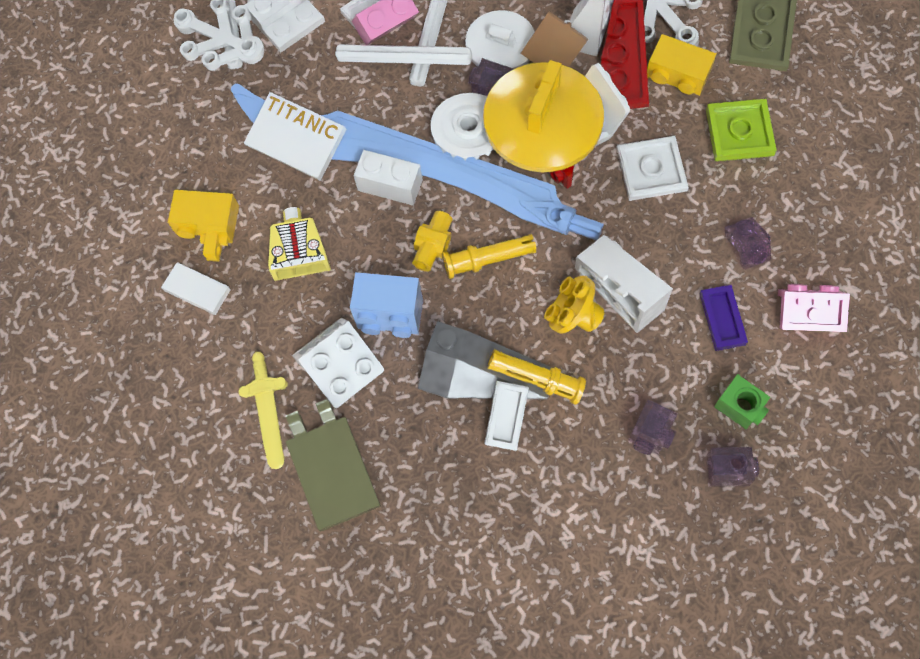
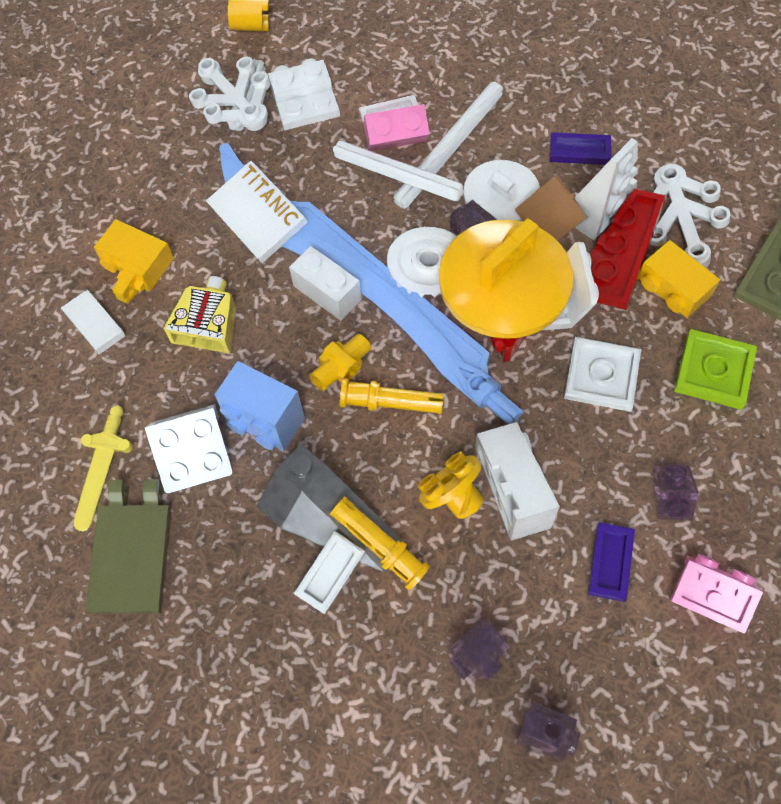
camera: 20 degrees right, 5 degrees down
(745, 390) = (594, 648): bright green brick -> none

